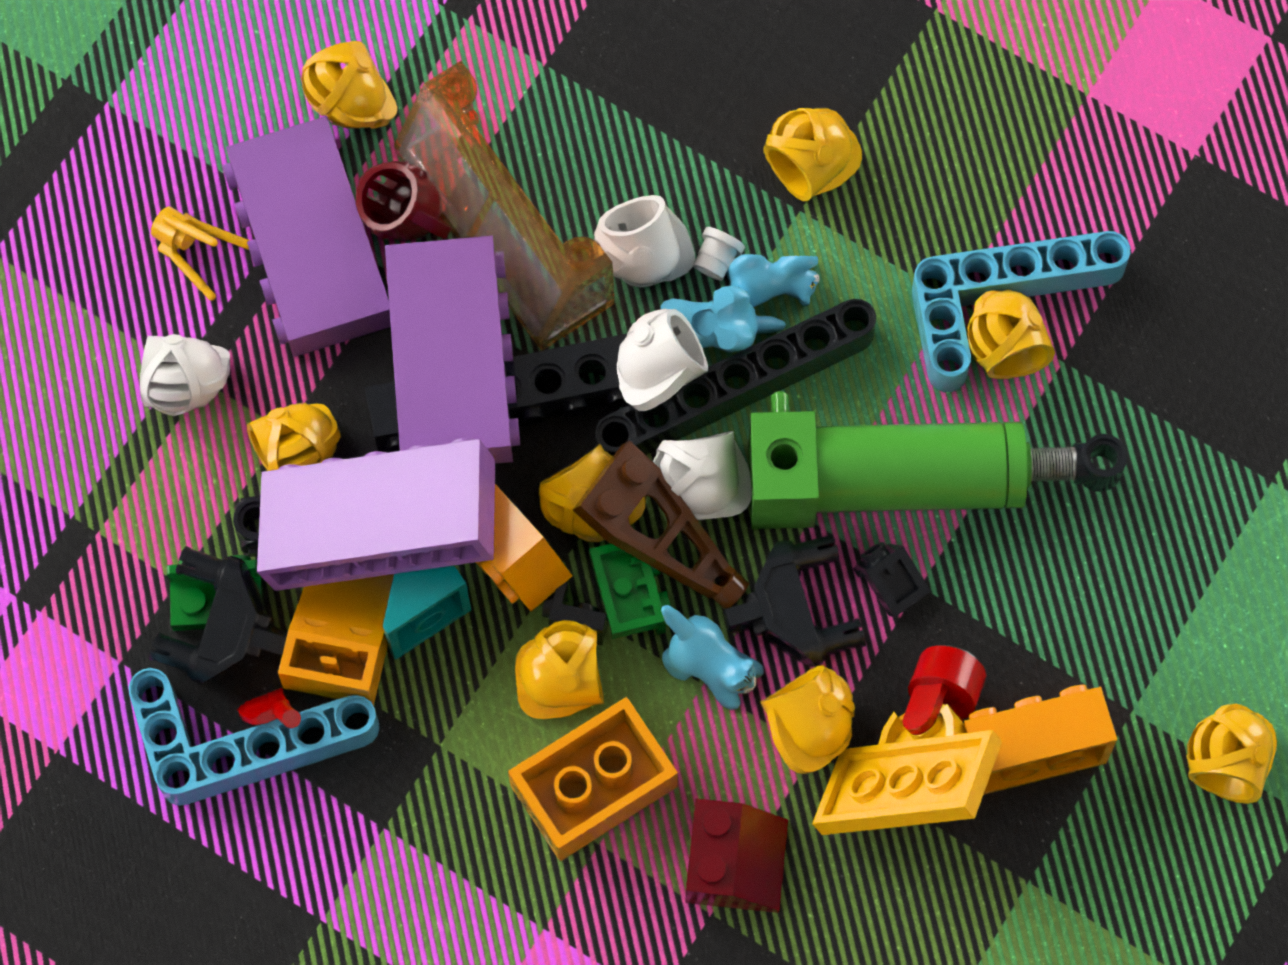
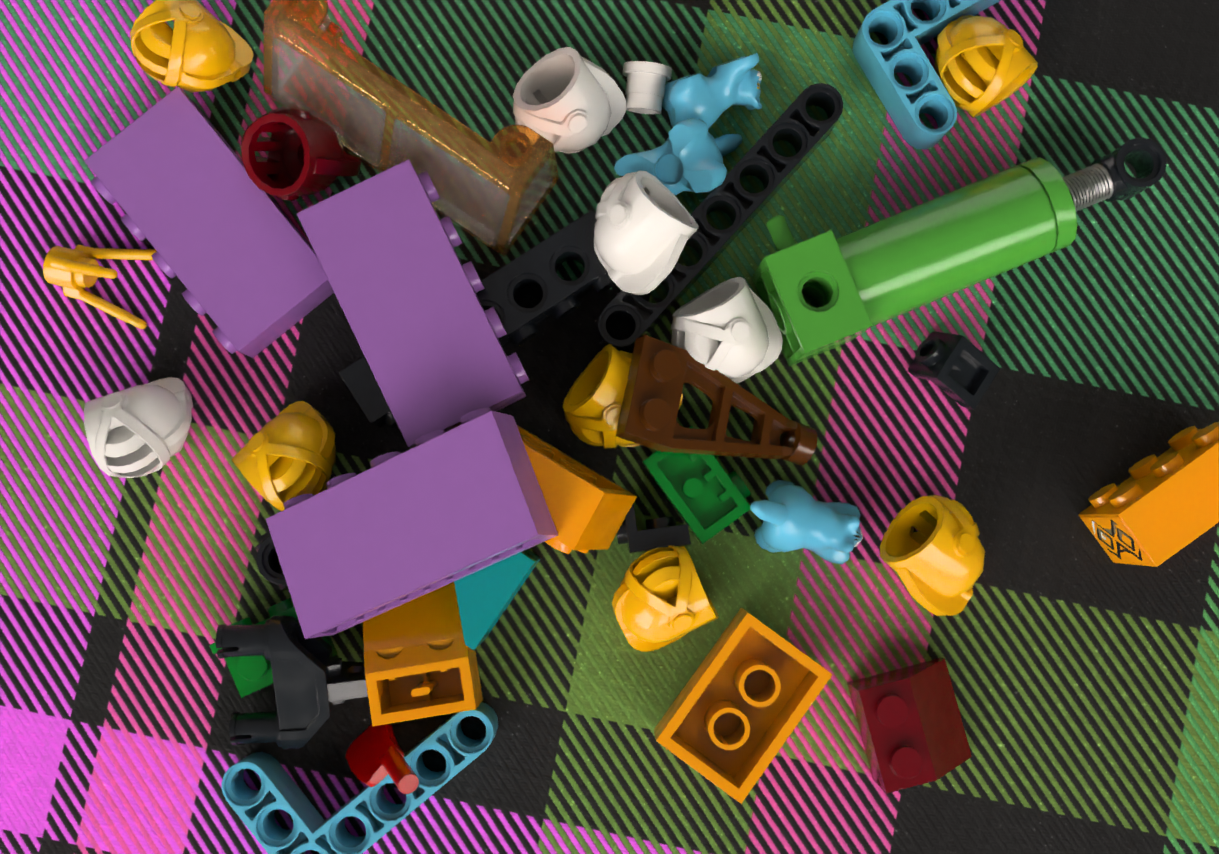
camera: 20 degrees left, 15 degrees up
(781, 610) = (857, 444): black connector -> none
(924, 759) = (1075, 573): yellow plate -> none

